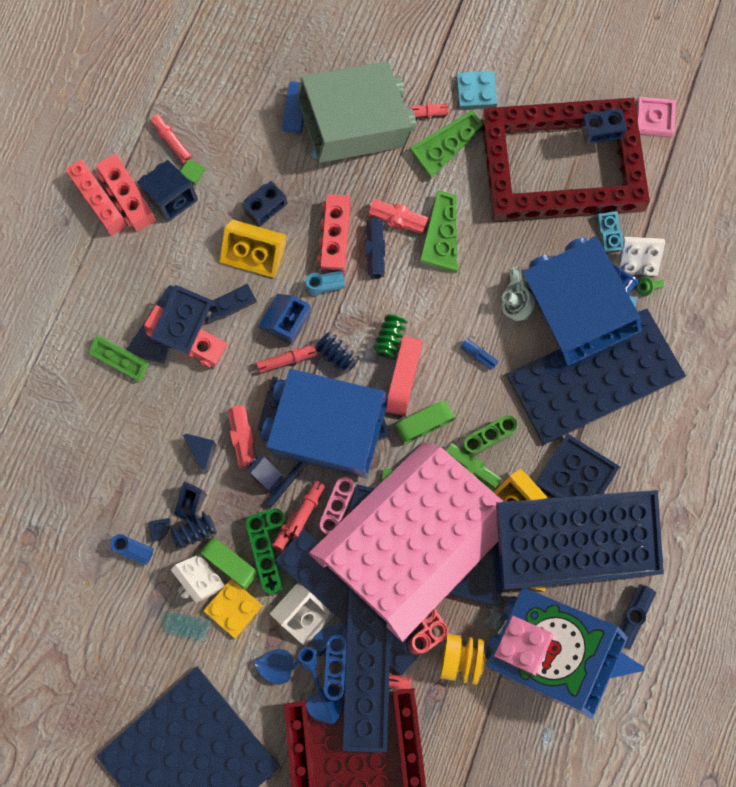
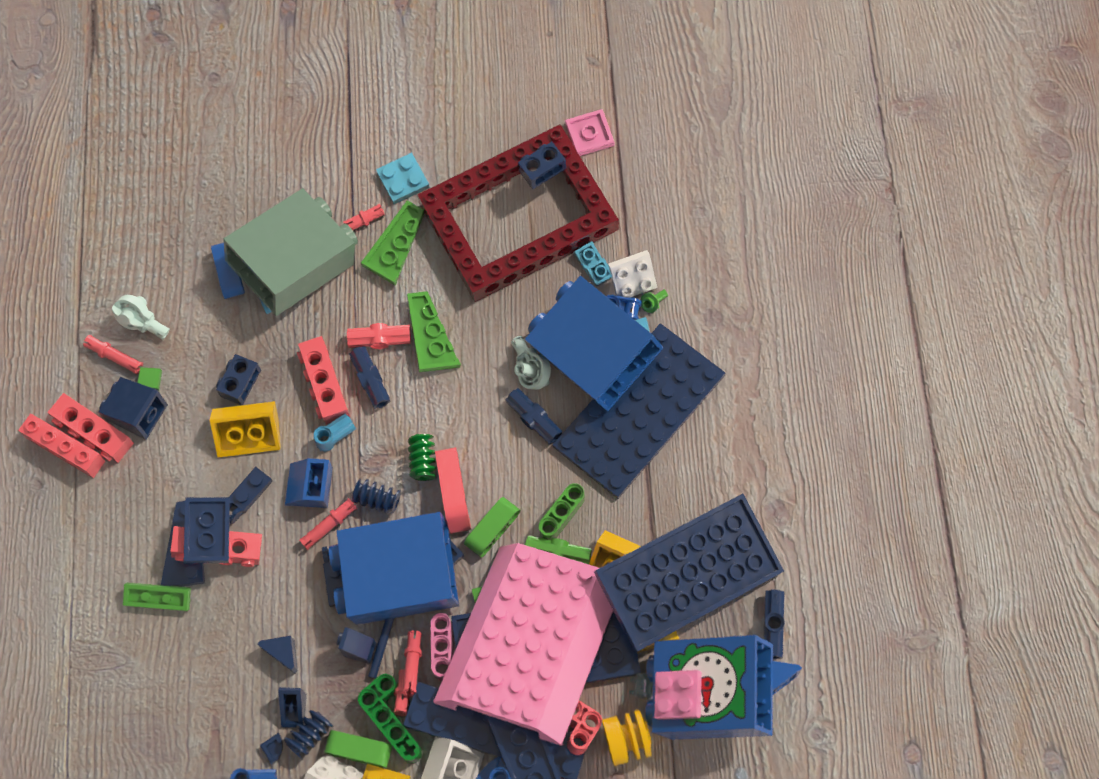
camera: 20 degrees left, 5 degrees down
(204, 114) = (137, 316): none -> light aqua pin
(241, 435) = (316, 619): coral piece -> none
(479, 354) = (517, 437): blue axle -> none
(501, 342) = (533, 416): none -> dark blue piece
(576, 470) = (659, 508): dark blue plate -> none

